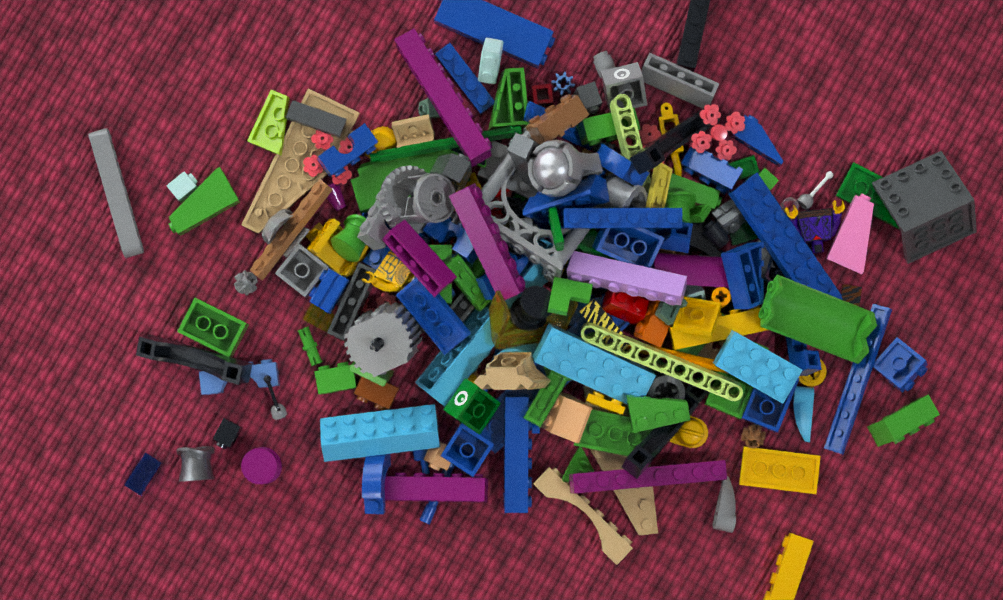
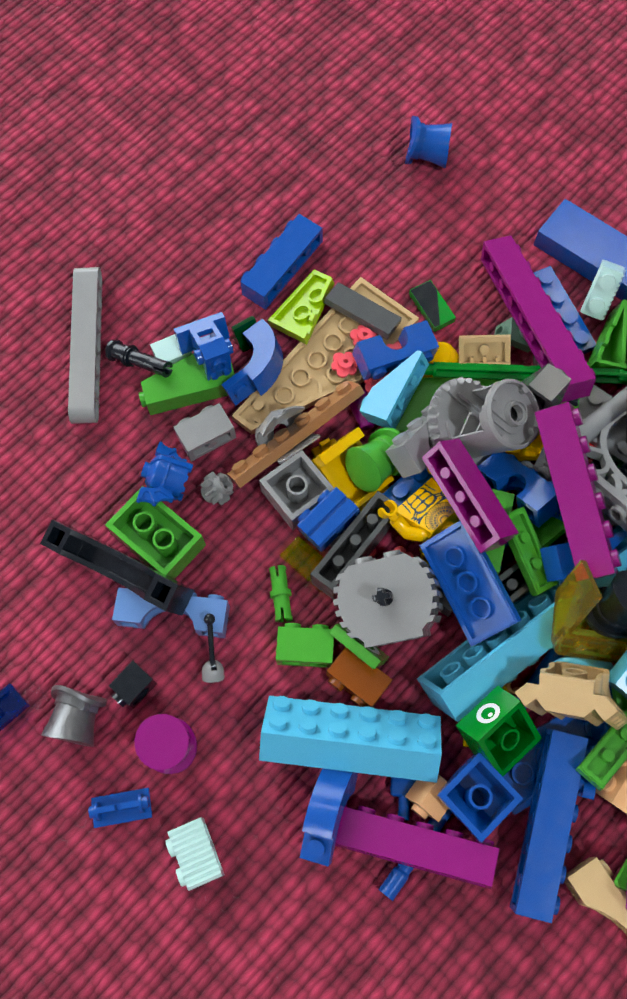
camera: 15 degrees right, 15 degrees down
(154, 197) = (131, 356): none -> black pin
(207, 284) = (164, 476): none -> blue helmet
(218, 187) = (209, 350): none -> blue tile
(224, 241) = (205, 431): none -> light grey brick
(235, 156) = (238, 330): none -> dark green slope
(243, 512) = (120, 807): none -> blue hinge
(245, 88) = (281, 261): none -> blue brick
(255, 180) = (262, 368): none -> blue arch
(298, 527) = (194, 853): none -> light aqua brick
(352, 187) = (393, 393): none -> medium azure slope
(367, 97) = (432, 306): none -> tile

